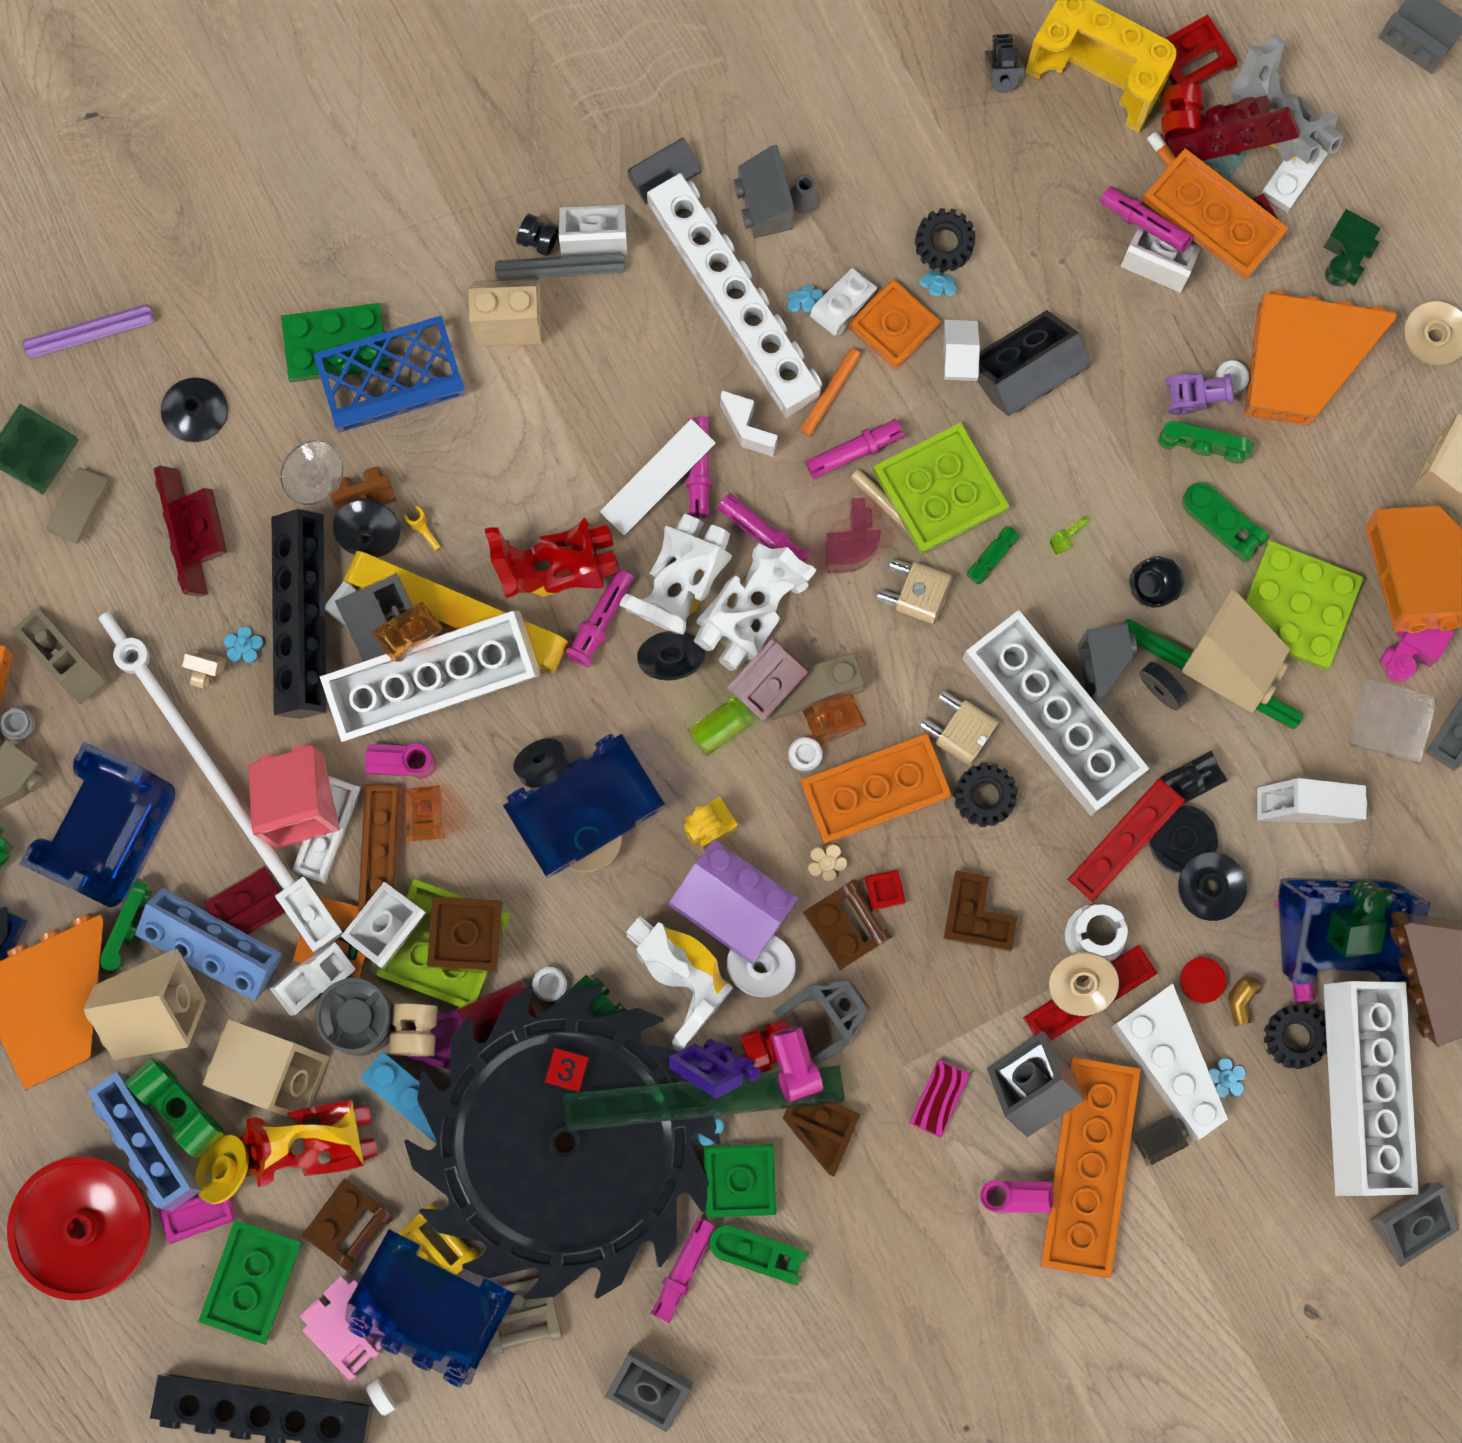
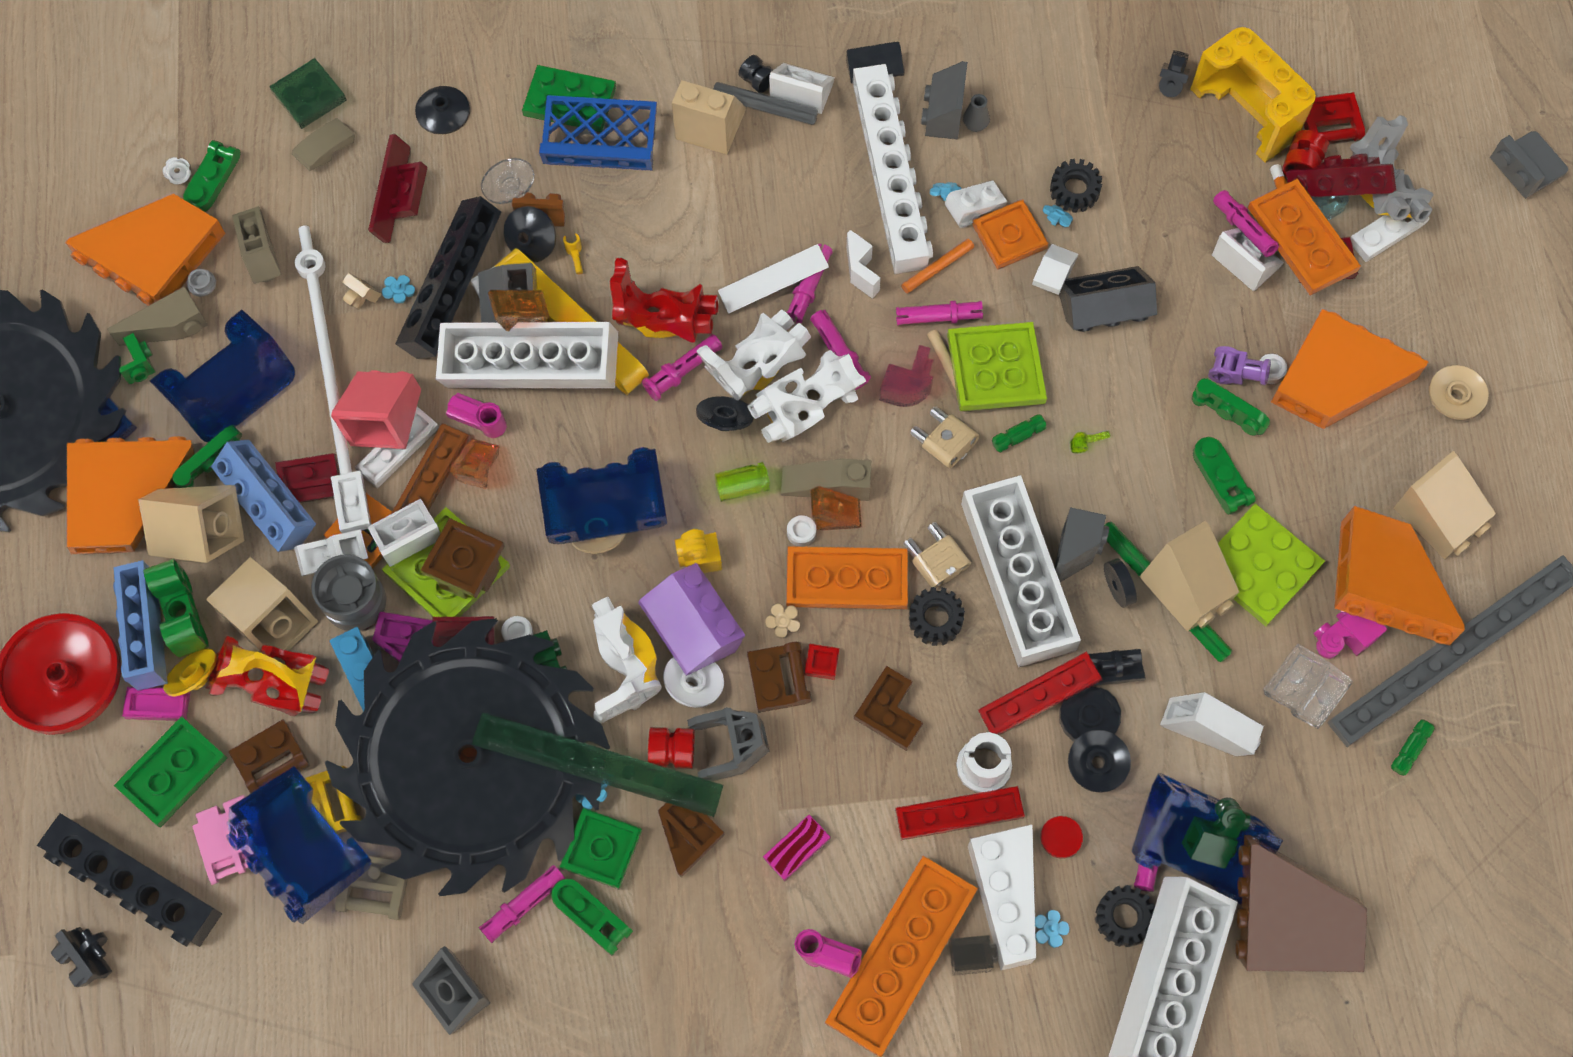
camera: 25 degrees right, 10 degrees down
(88, 331) = (390, 27): medium lavender axle -> none
(380, 1397) = (229, 907): white tile -> none
(408, 1042) = (388, 619): tan wheel -> none
(541, 763) = (586, 456): black piece -> none
(566, 1069) = (494, 695): red tile -> none
(713, 1067) = (615, 742): dark purple plate -> none
(768, 679) = (794, 456): plate -> none
(798, 1074) = (683, 772): dark pink piece -> none
(1034, 1085) = (880, 865): dark grey slope -> none
(1087, 996) = (951, 809): tan dish -> none
(1156, 582) = (1146, 499): black hair -> none
(1240, 997) = (1087, 864): pearl gold arm -> none
(1351, 241) = (1408, 299): dark green brick -> none

